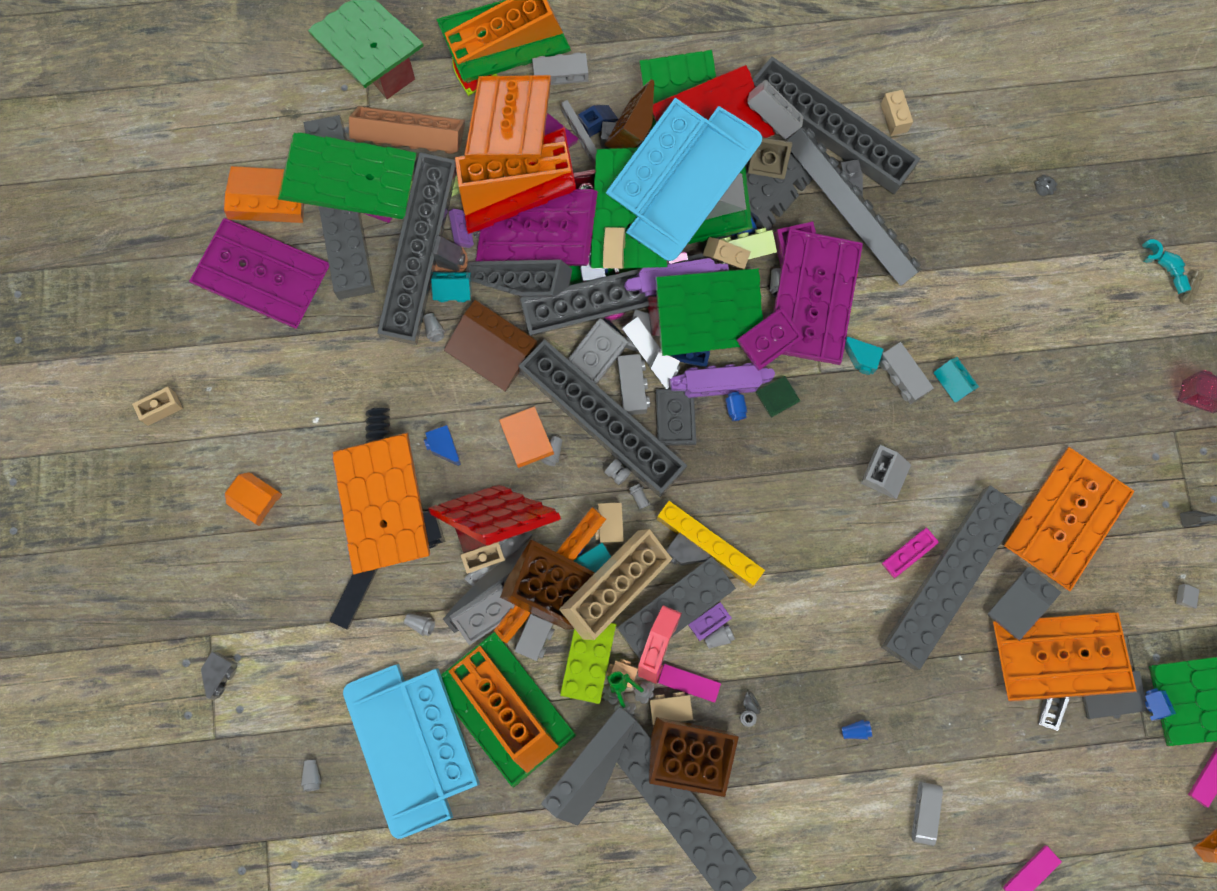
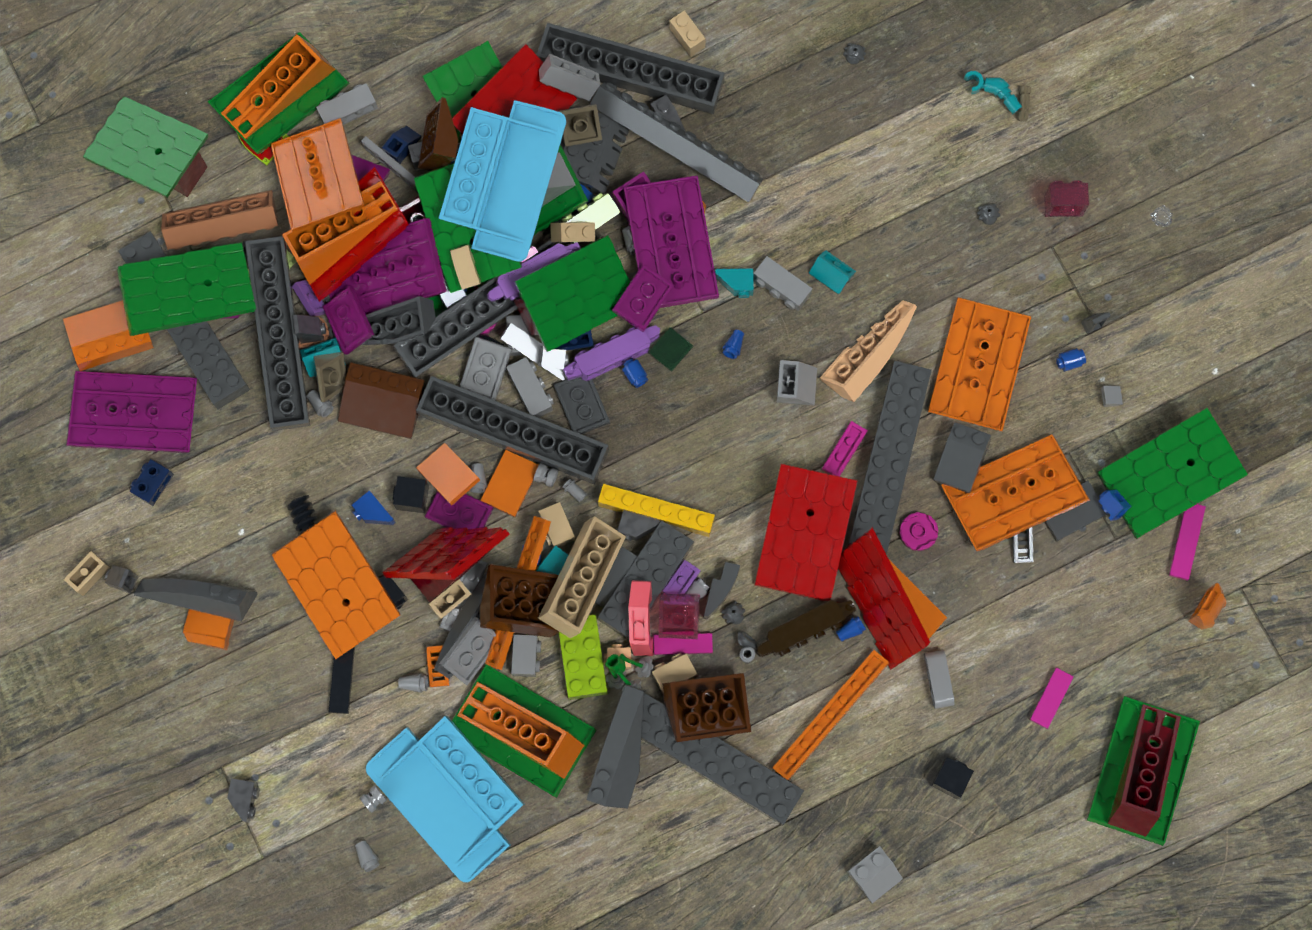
camera: 15 degrees left, 0 degrees up
(187, 423) = (121, 579): none -> flat silver slope
(250, 343) = (151, 482): none -> dark blue brick
(257, 469) = (205, 597): none -> dark grey wedge
(338, 722) = (373, 799): none -> light grey wheel
(446, 598) = (439, 683): none -> orange slope
(452, 304) = (330, 374): none -> dark tan slope
(484, 443) = (410, 494): none -> black head
(487, 260) = (348, 320): none -> magenta tile
(527, 480) = (463, 513): none -> magenta tile
(581, 467) = (510, 483): none -> orange tile
(654, 589) = (617, 572): none -> dark grey slope
(695, 656) = (679, 616): none -> clear pink brick
(745, 643) = (721, 588): none -> dark grey slope
(749, 677) = (735, 618): none -> dark grey animal
(807, 809) = (830, 715): none -> orange plate
(812, 712) = (805, 627): none -> dark brown hinge
(835, 635) = (801, 550): none -> red piece
(838, 415) = (733, 346): none -> blue cone
(906, 723) = (890, 603): none -> red piece
(955, 658) = (918, 531): none -> dark pink tile
(957, 475) = (862, 363): none -> light nougat wedge
(1121, 380) = (988, 217): none -> dark grey animal
(1160, 546) = (1071, 359): none -> blue brick

